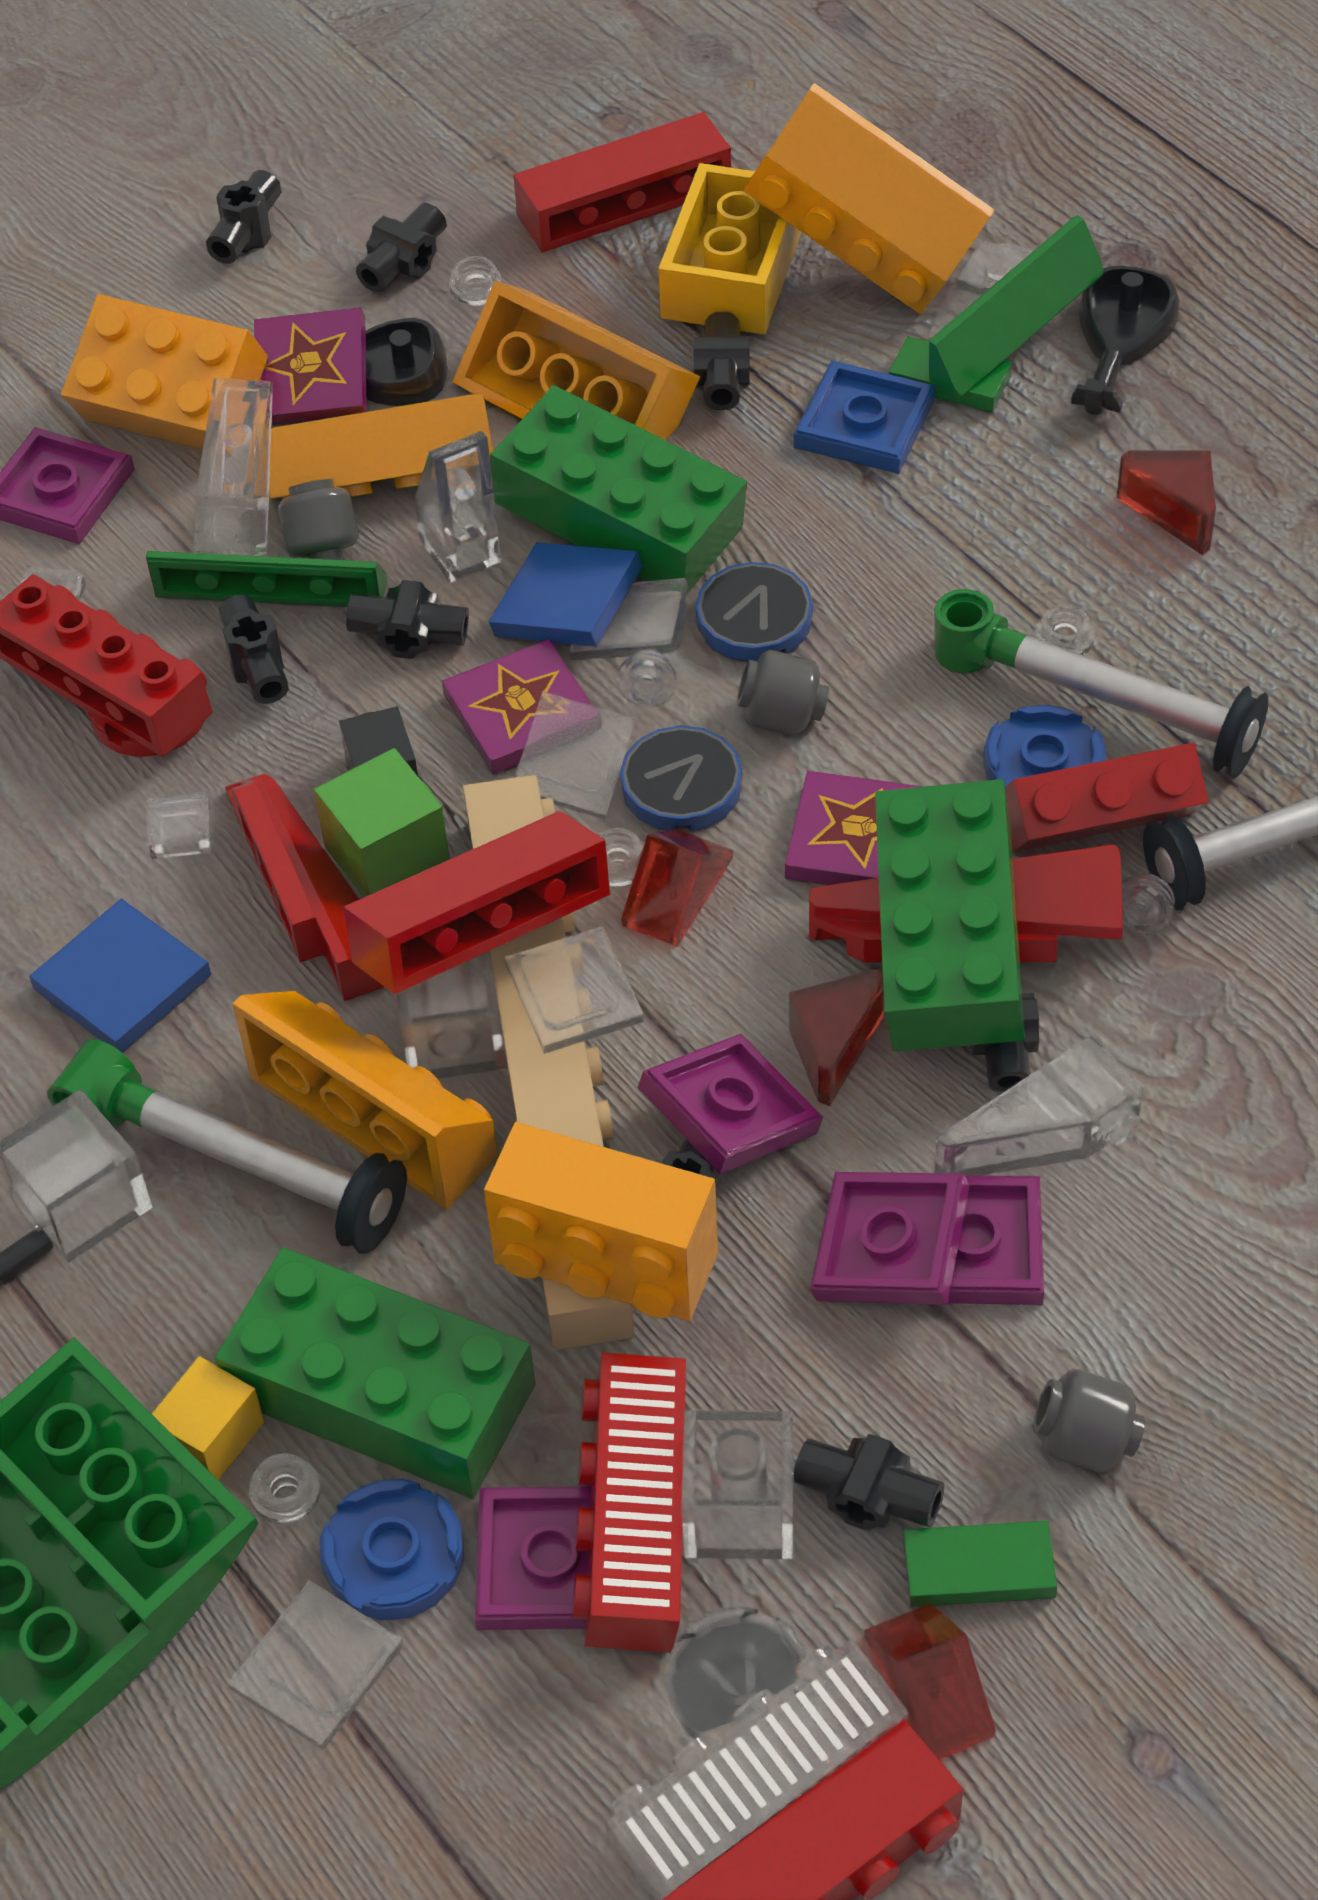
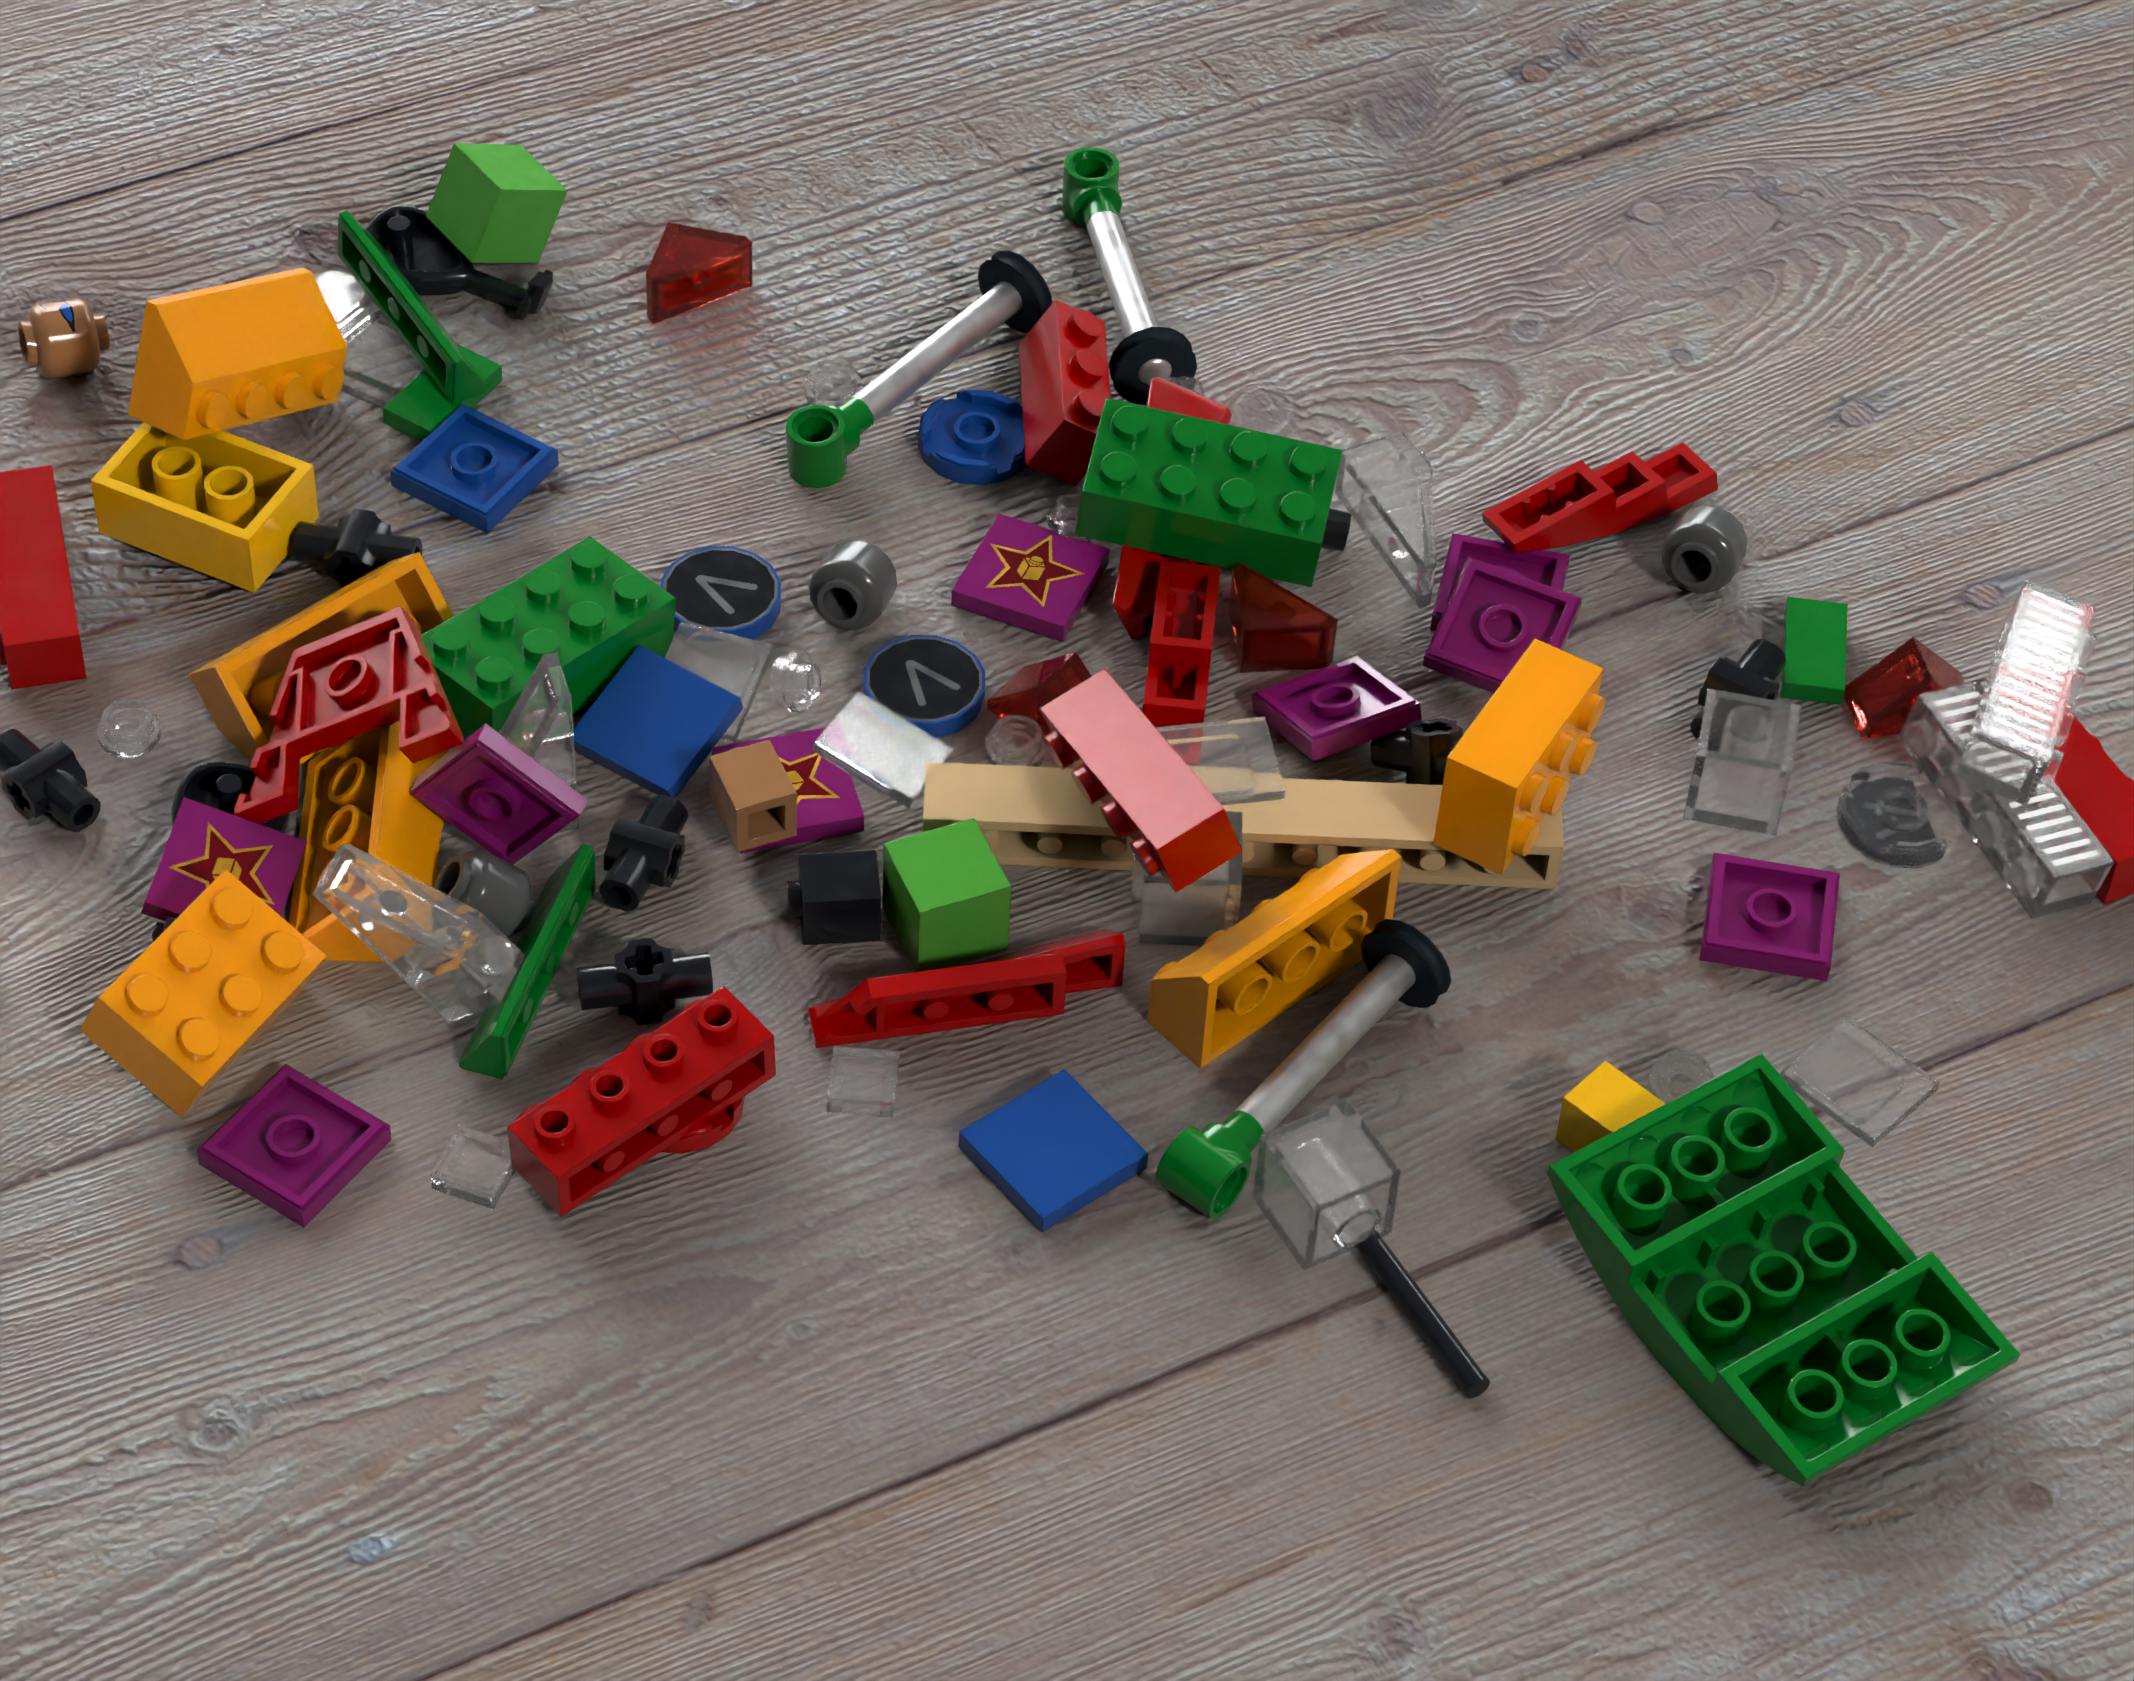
camera: 85 degrees left, 5 degrees down
(379, 1371) = (1582, 987): green brick -> none
(392, 1549) = (1746, 1013): blue tile -> none
(396, 483) = (498, 795): none -> magenta tile
(463, 369) = (344, 689): none -> red wing
(468, 663) = (753, 795): none -> medium nougat brick
(635, 1503) = (1745, 832): red brick -> none
(757, 959) = (1181, 644): none -> red slope
(876, 1754) = (2027, 694): none -> clear brick
(908, 119) = (62, 338): none -> medium nougat head
(1150, 1323) = (1598, 503): none -> red slope
(1181, 330) = (496, 203): none -> bright green head

